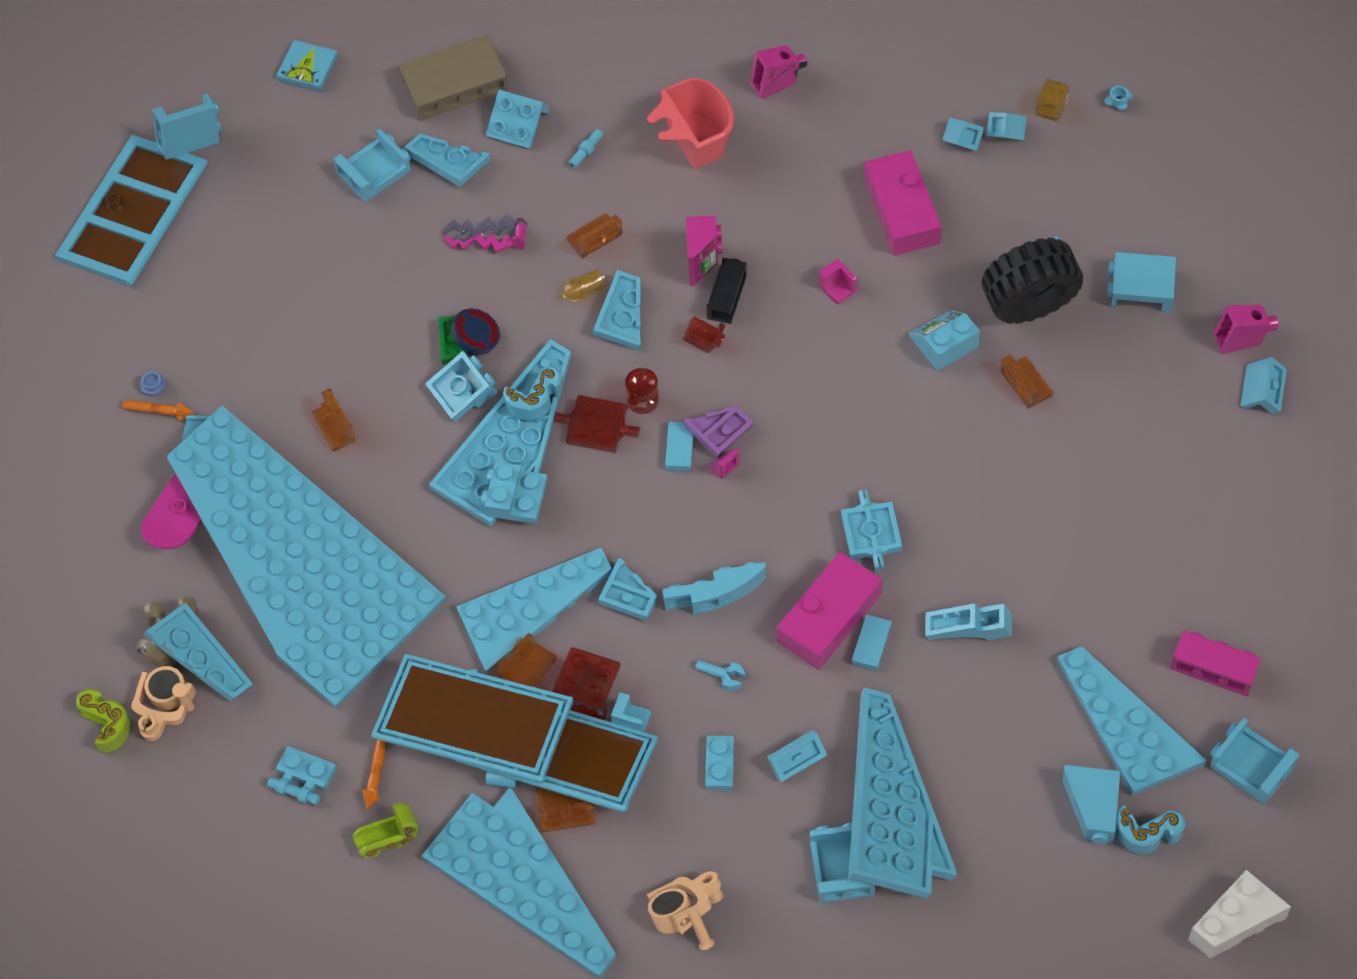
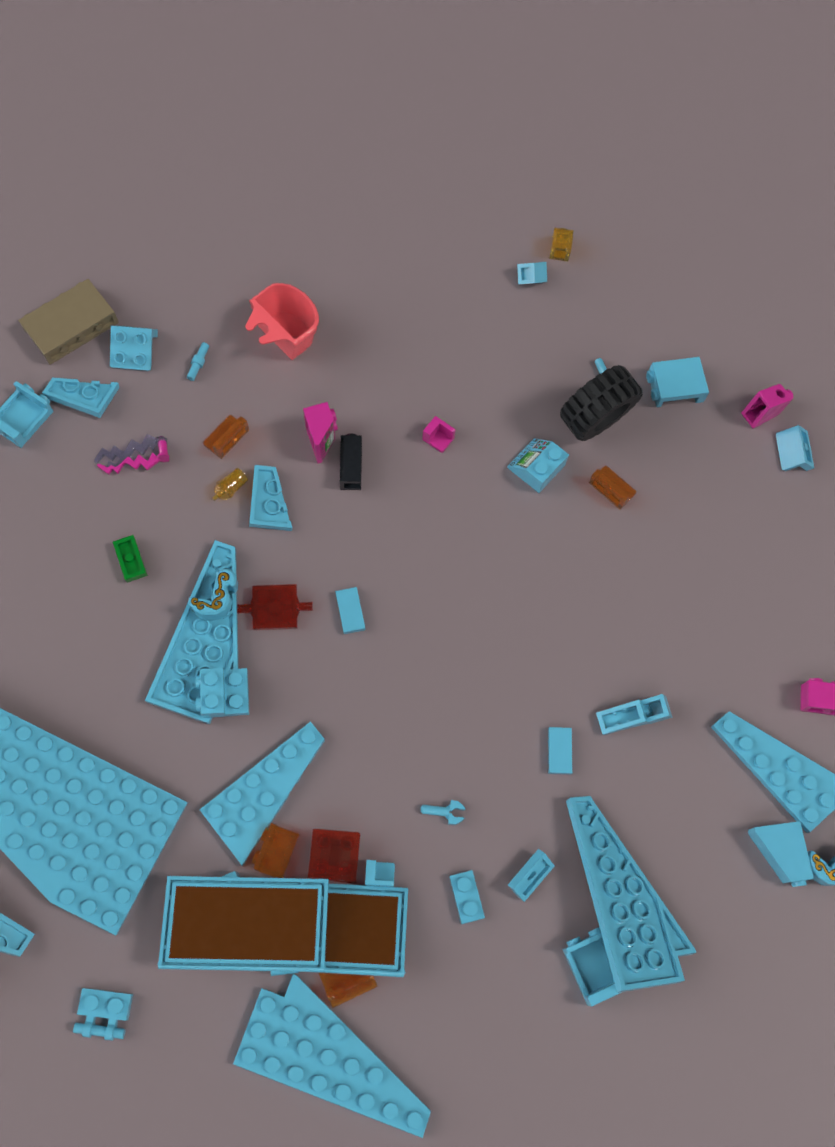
camera: 25 degrees left, 10 degrees up
(333, 422) = (44, 662): clear orange bracket -> none
(370, 794) = (170, 1014): orange piece -> none
(387, 833) = (194, 1053): lime animal -> none
(462, 385) = (149, 600): medium azure plate -> none
(475, 331) = (148, 547): dark blue tile -> none
(627, 593) = (344, 758): medium azure wing -> none
(642, 390) = (306, 569): clear red wheel -> none
(673, 910) = (470, 1058): light nougat piece -> none
(704, 335) = (343, 506): clear red bracket -> none
(719, 428) = (379, 588): medium lavender wing -> none
(725, 463) = (392, 616): dark pink slope -> none
(727, 587) = (426, 730): medium azure slope -> none
(775, 70) = (336, 262): dark pink torso -> none
(829, 610) = (519, 733): dark pink brick -> none
(871, 530) = (530, 649): medium azure plate -> none
(902, 202) = (471, 355): dark pink brick -> none
(963, 133) = (500, 286): medium azure panel -> none
(1118, 92) = (613, 230): medium azure plate -> none

